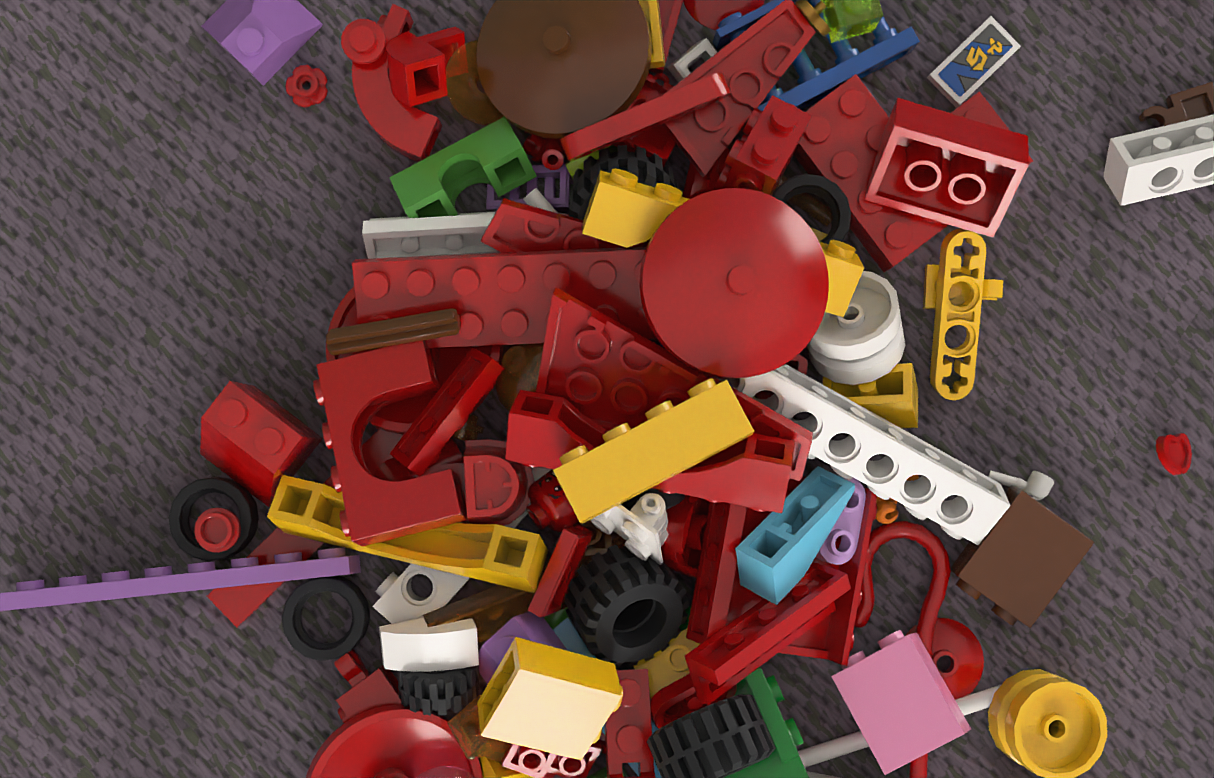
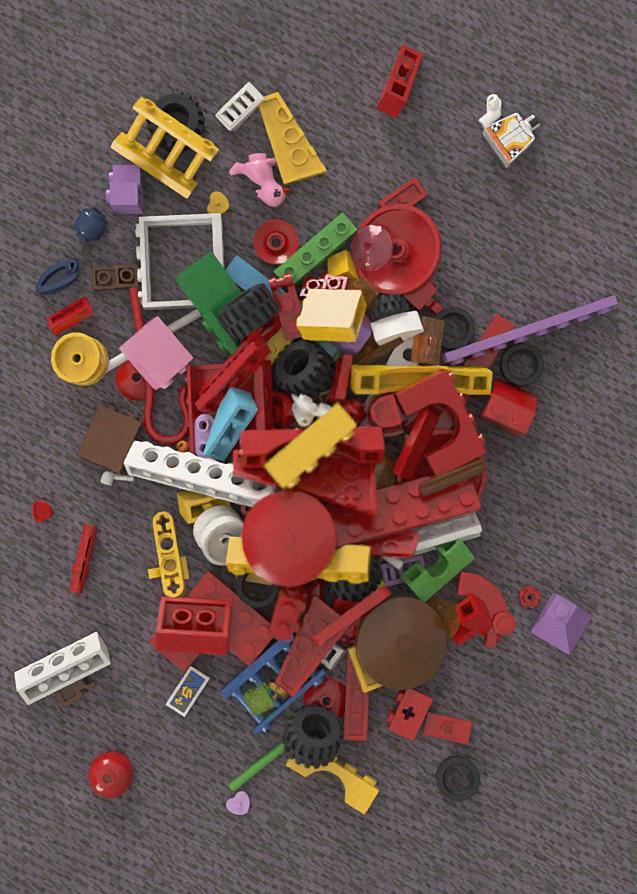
camera: 165 degrees right, 0 degrees up
(217, 529) = (516, 359): red plate -> none
(377, 601) = (428, 343): none -> clear orange slope
(545, 151) = (398, 590): red arm -> none
(1136, 302) = (84, 553): none -> red pin

